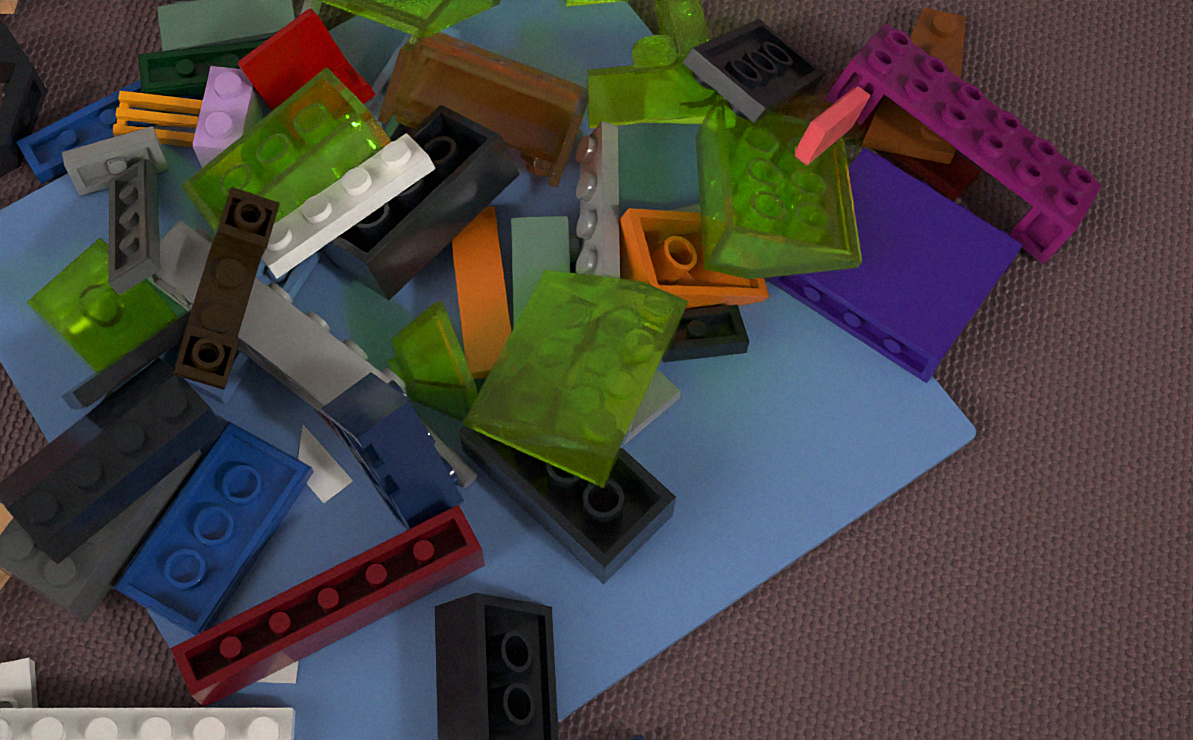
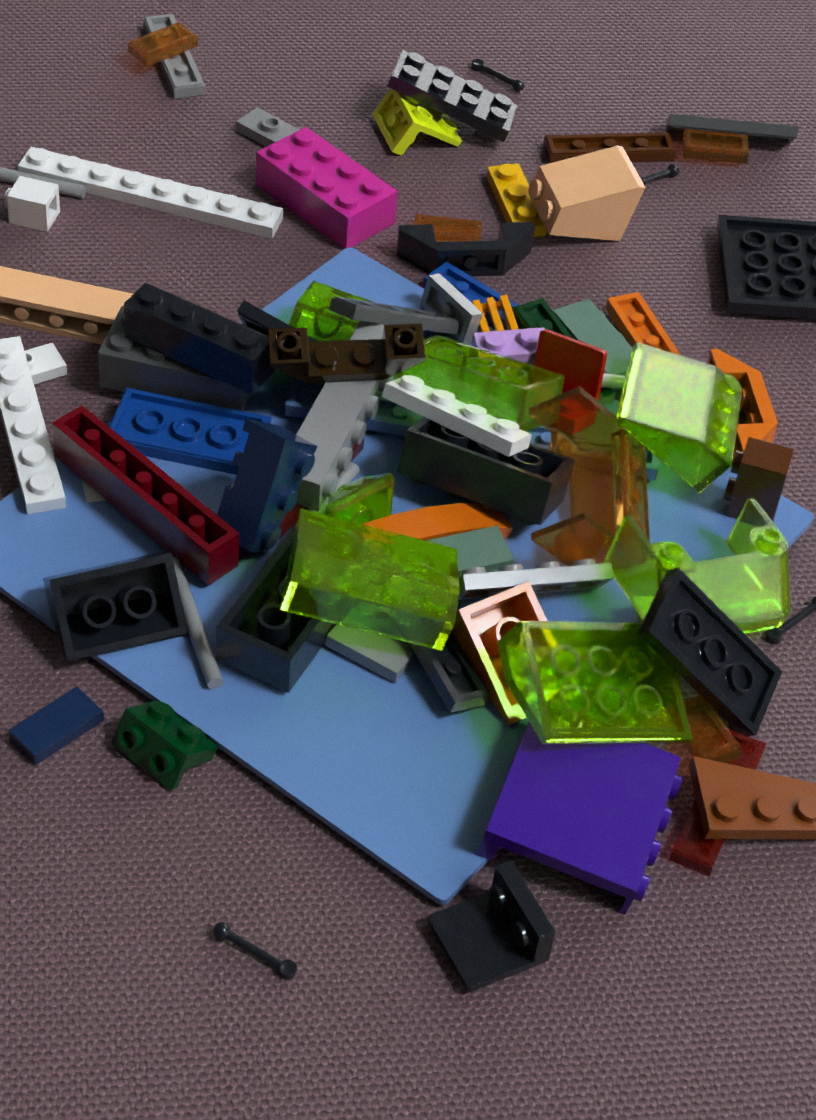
camera: 70 degrees right, 20 degrees down
(555, 595) = (197, 632): none -> light grey bar
(702, 674) = (161, 742): none -> dark green bracket
(831, 125) = (678, 710): coral tile -> none
(980, 131) = (734, 836): magenta bracket -> none
(1022, 615) = (286, 968): none -> black hinge
(1026, 395) = (494, 931): none -> black bracket

